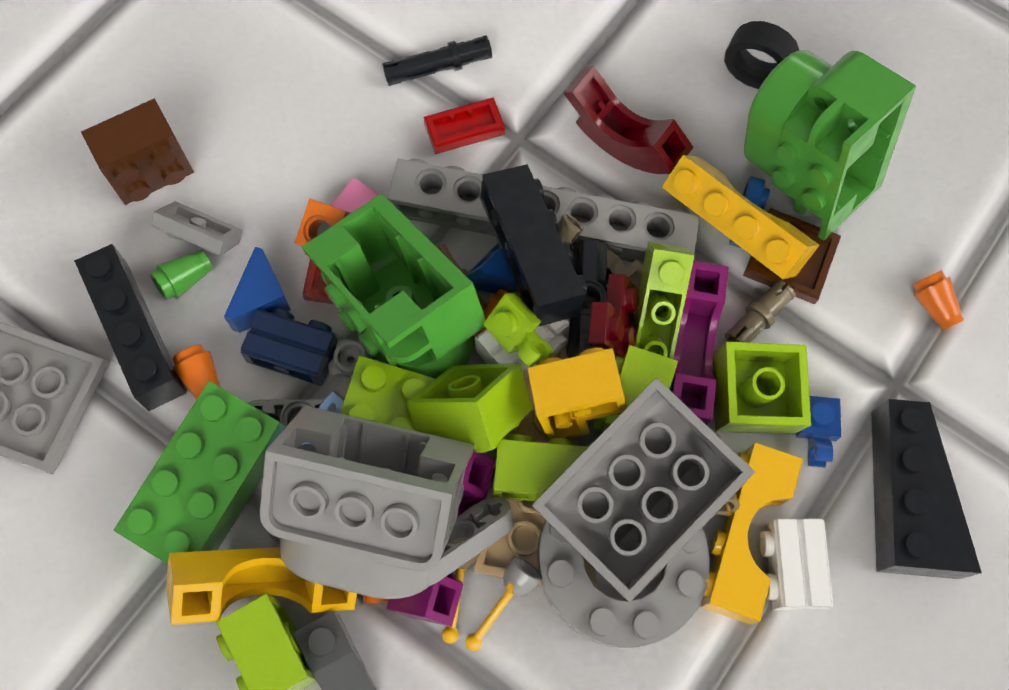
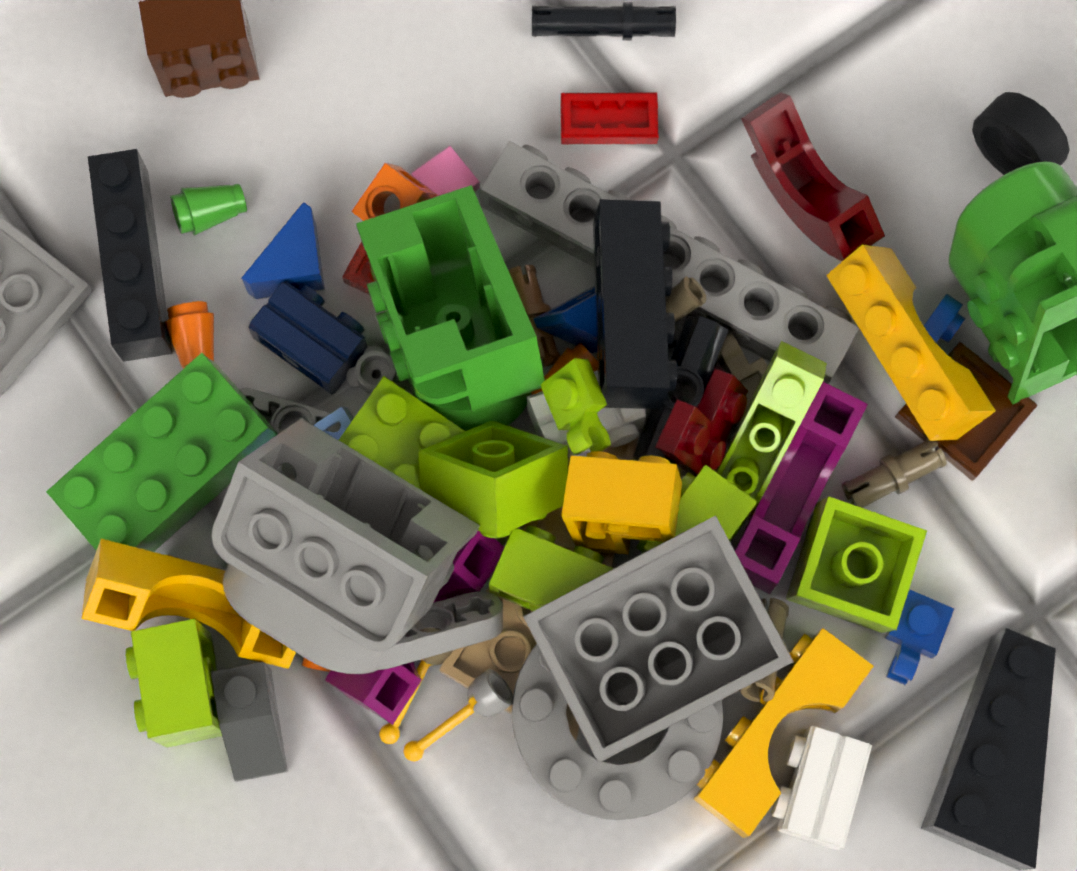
camera: 20 degrees right, 5 degrees up
(196, 227) = (242, 154): light grey plate -> none

